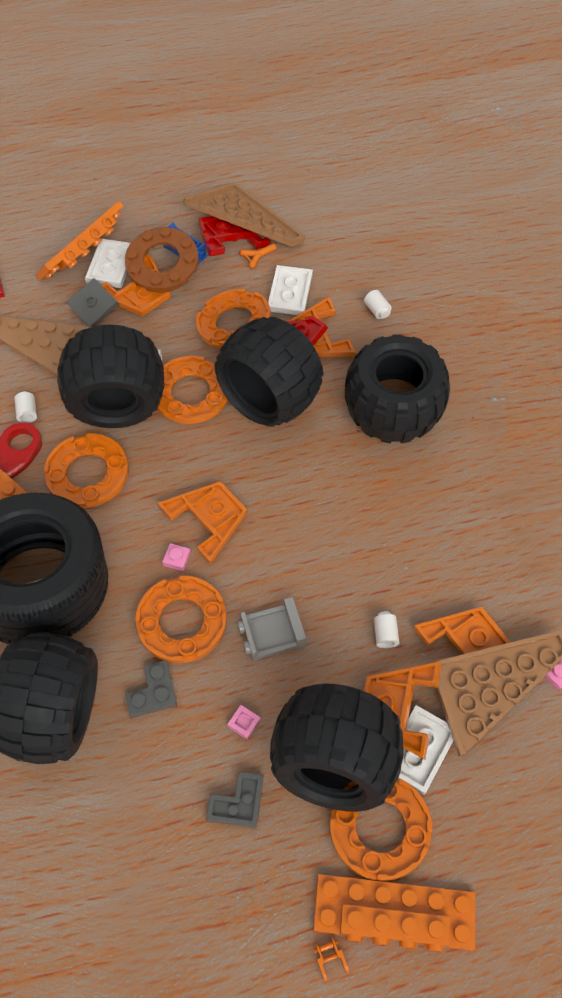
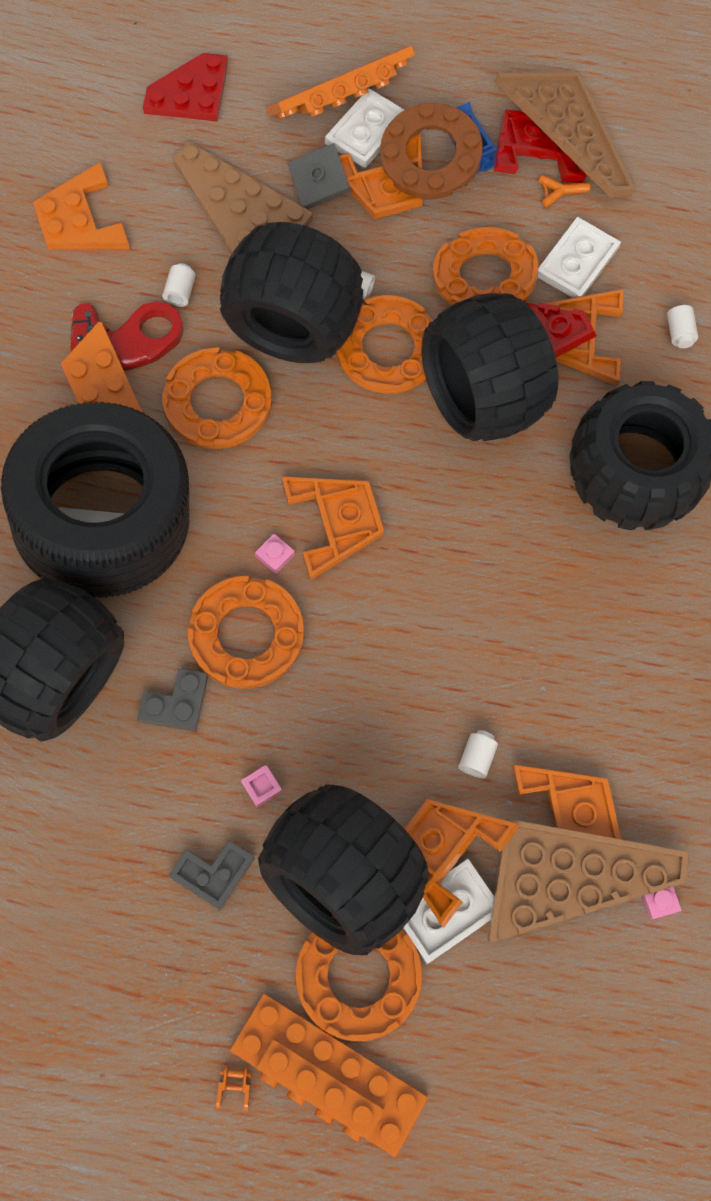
camera: 20 degrees right, 10 degrees up
(272, 631) = (343, 693): light grey panel -> none

